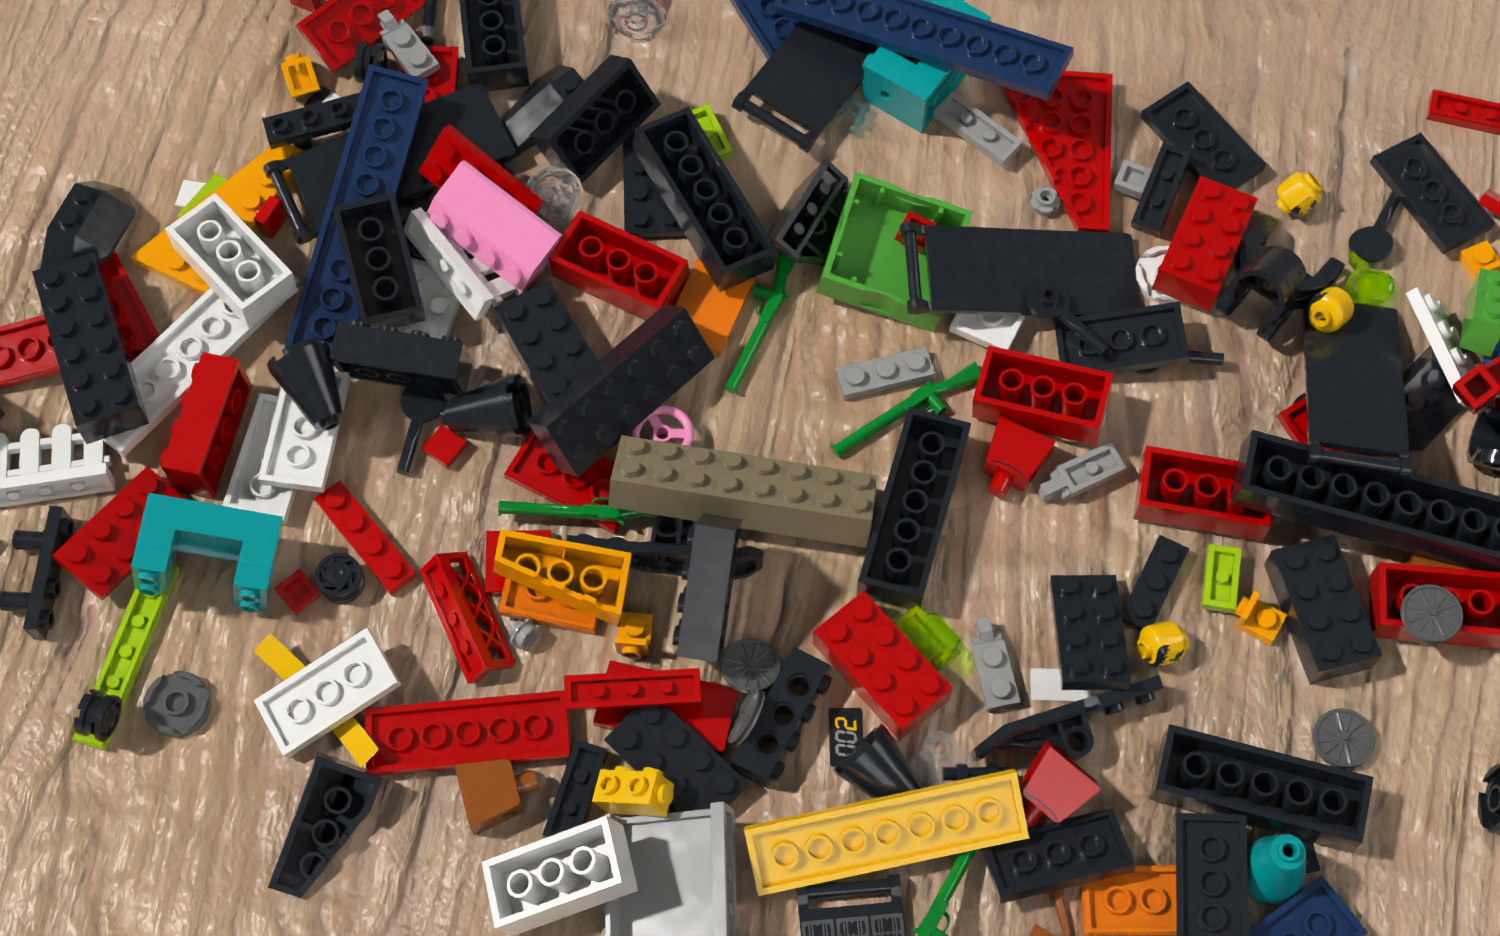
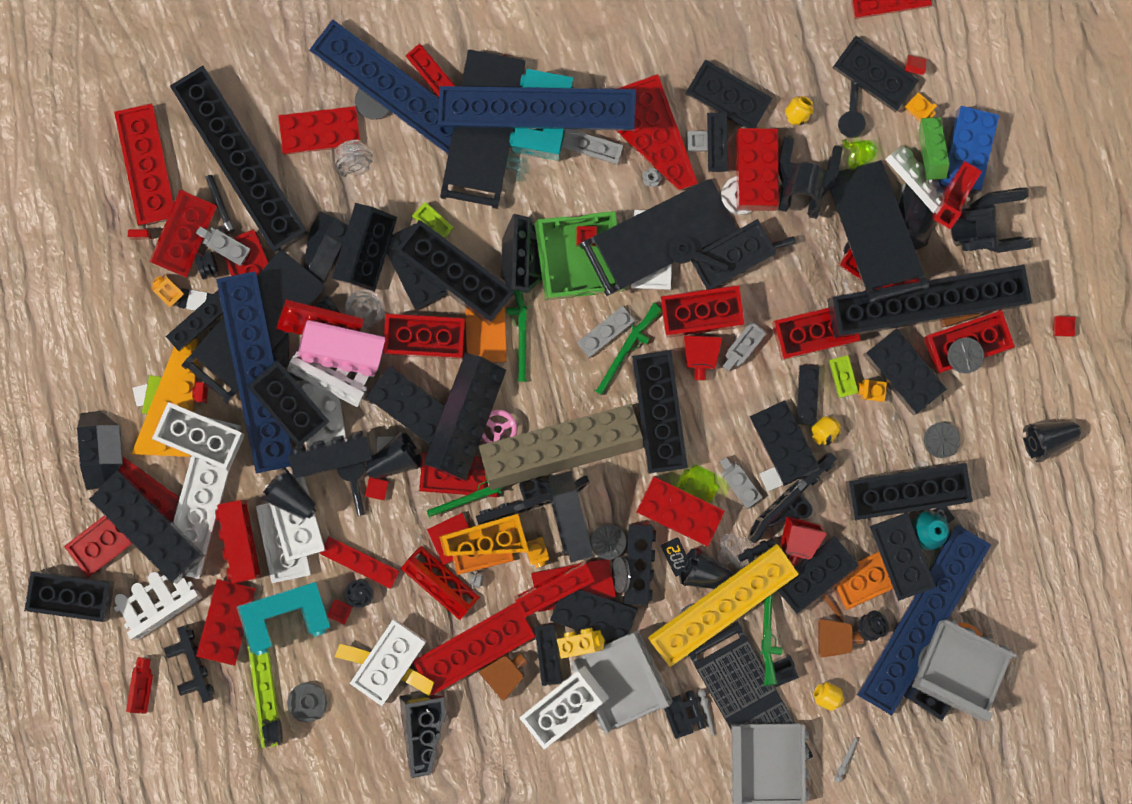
camera: 25 degrees left, 20 degrees up
(1330, 309) = (845, 185): yellow head -> none

